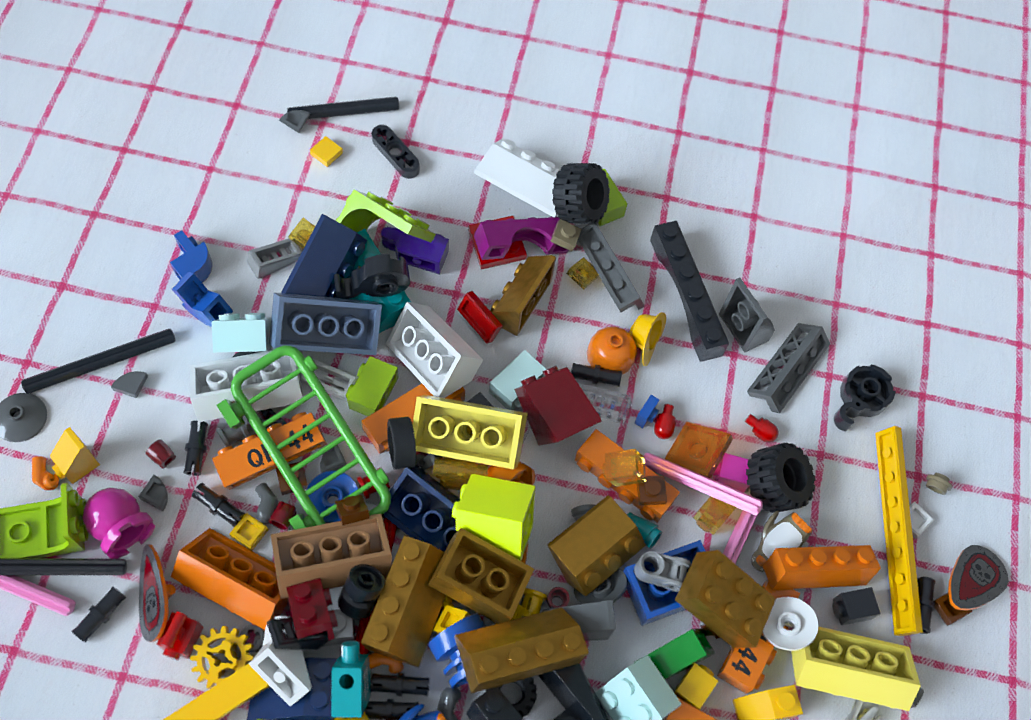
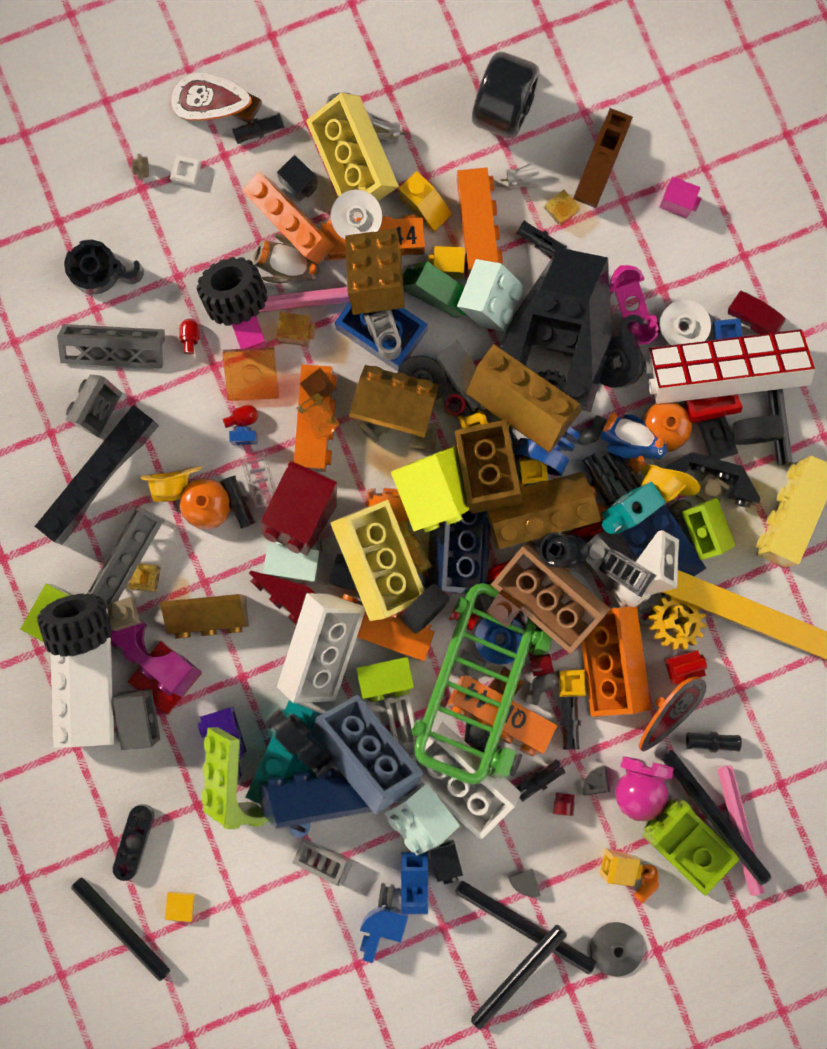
camera: 120 degrees left, 20 degrees up
(69, 335) = (518, 977): none -> black axle
(196, 336) = (446, 862): none -> black brick
(212, 280) = (386, 895): none -> dark grey bush
(295, 119) = (168, 962): dark grey tile -> none
(302, 232) = (283, 852): clear yellow plate -> none
(310, 609) = (606, 575): dark red bracket -> none
(479, 317) = (255, 637): red tile -> none
(480, 200) = (136, 719): none -> dark grey brick
(496, 359) = (283, 593): none -> dark red slope
(544, 557) = (427, 442): none -> dark tan plate
(647, 529) = (350, 374): teal cone -> none
(703, 484) = (282, 351): bright pink axle -> none
(898, 533) = (205, 179): yellow tile -> none

